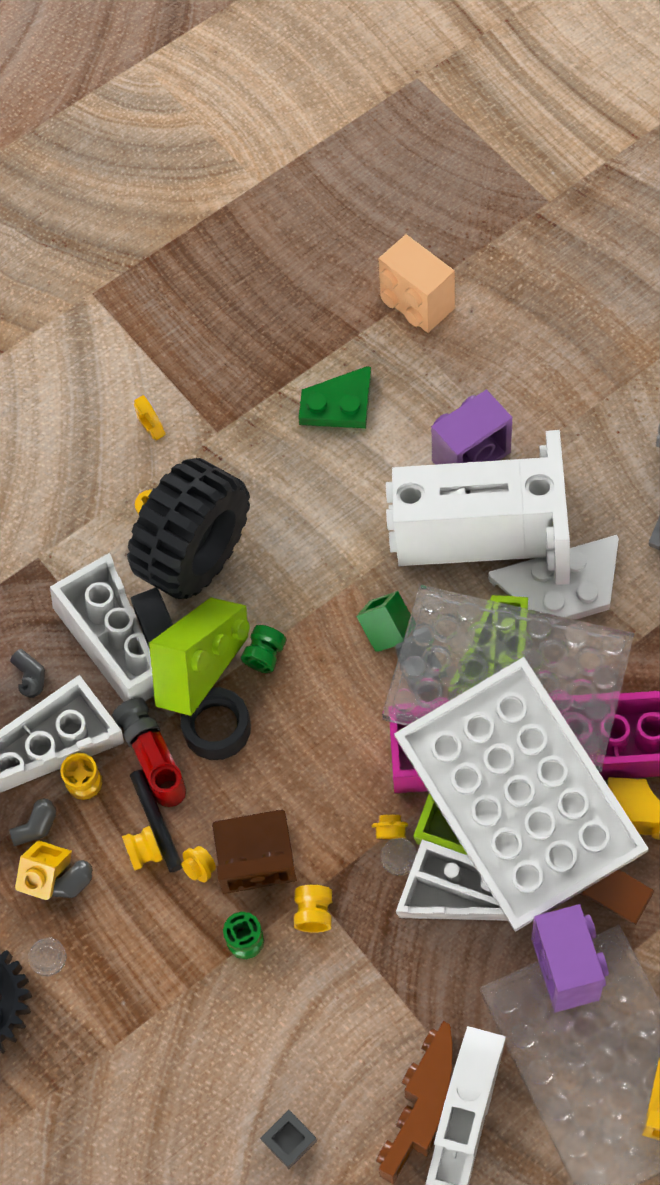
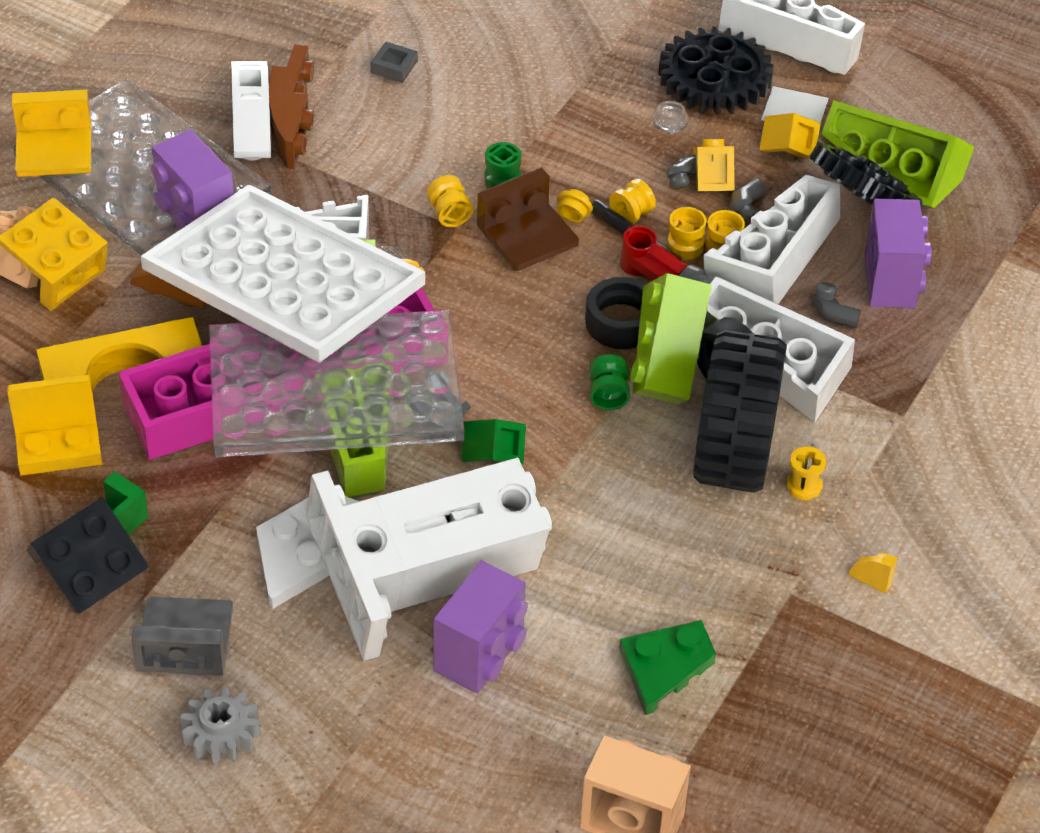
camera: 150 degrees right, 15 degrees down
(111, 783) = (687, 232): none -> yellow wheel

